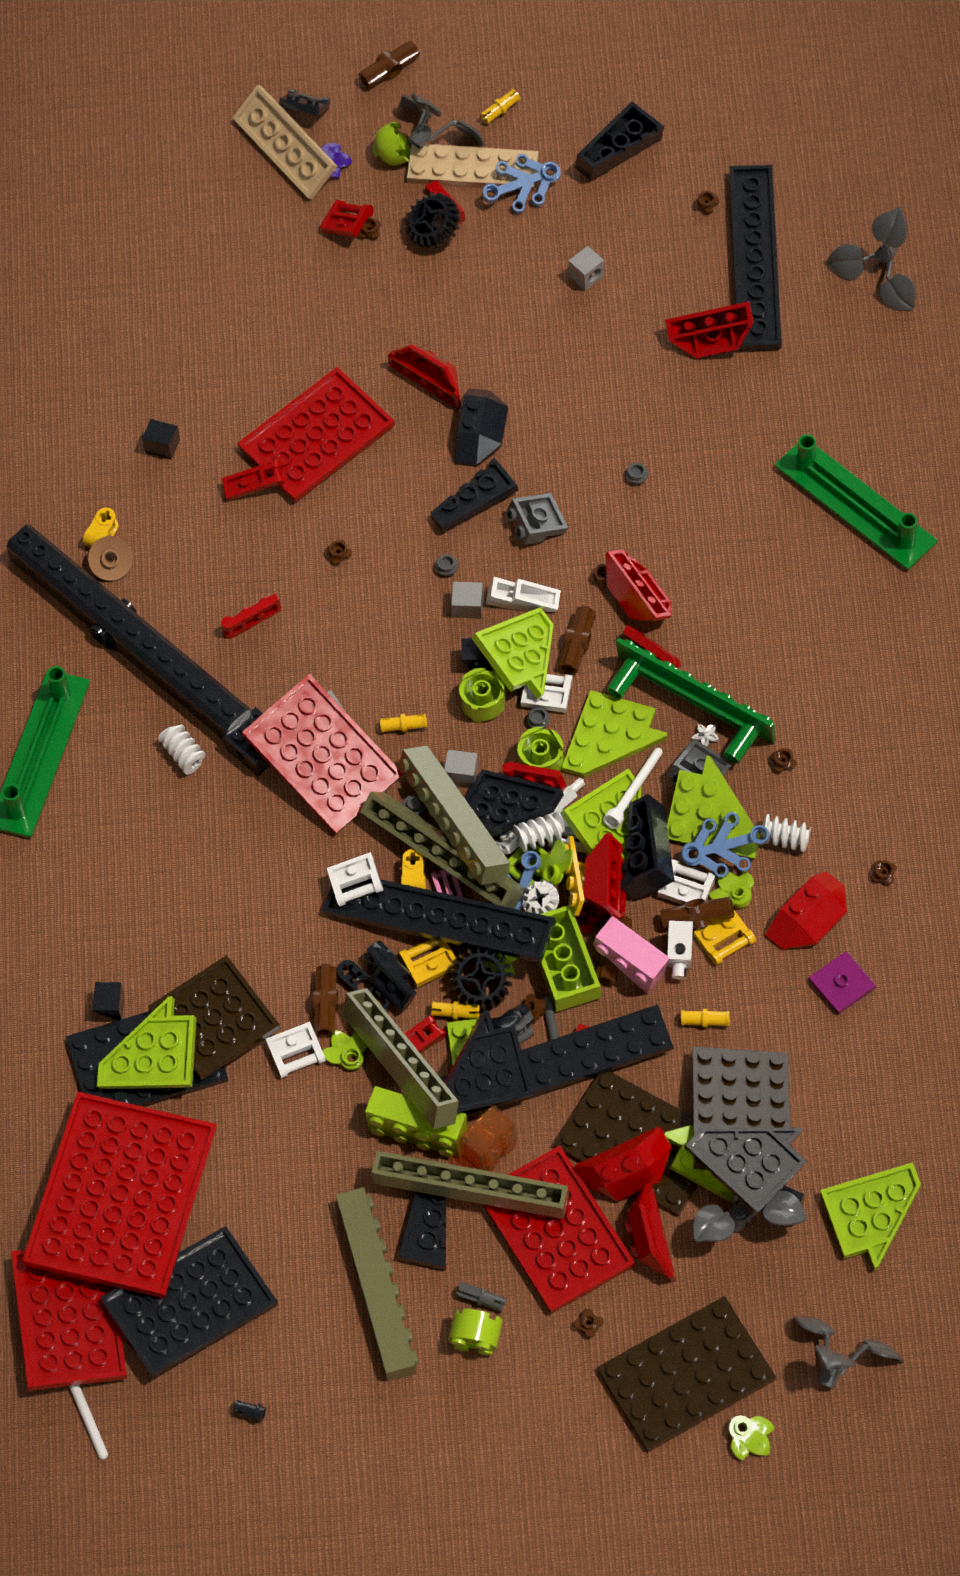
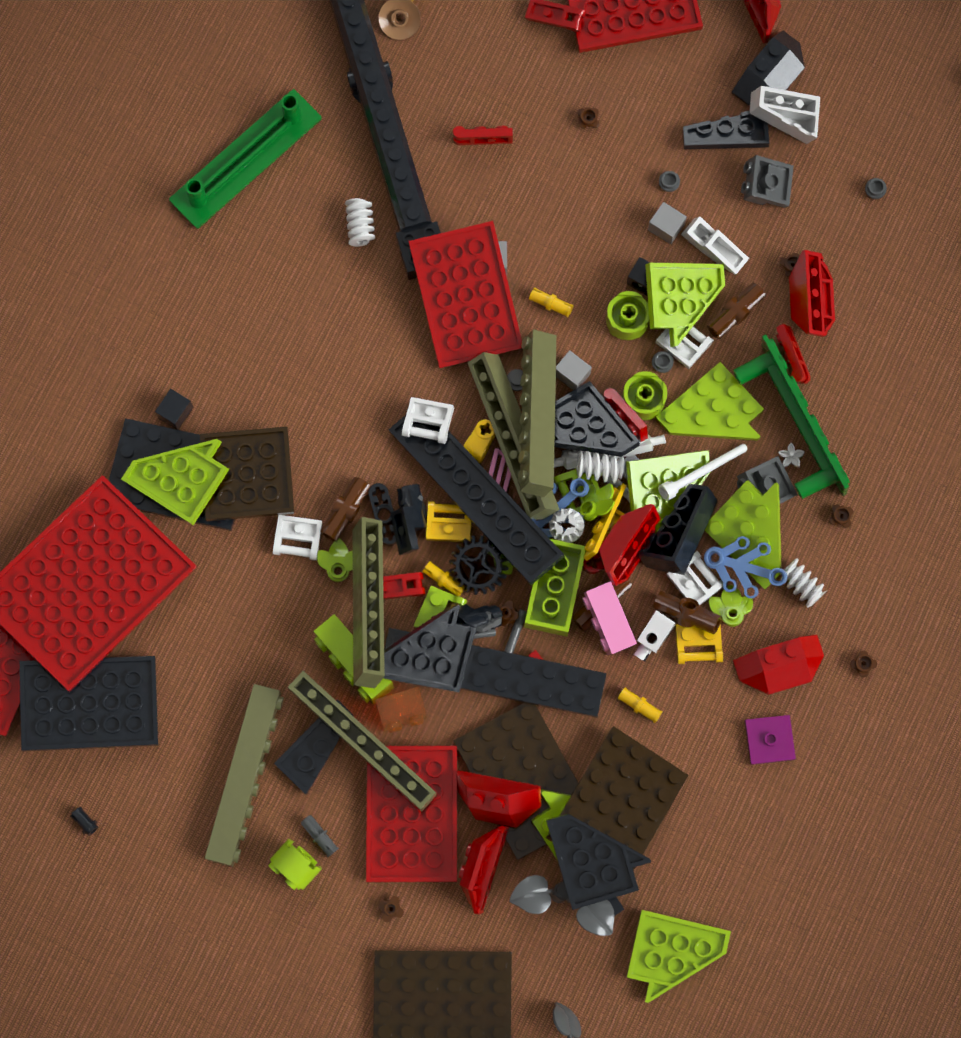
camera: 25 degrees right, 15 degrees up
(517, 449) = (788, 111): none -> white wedge

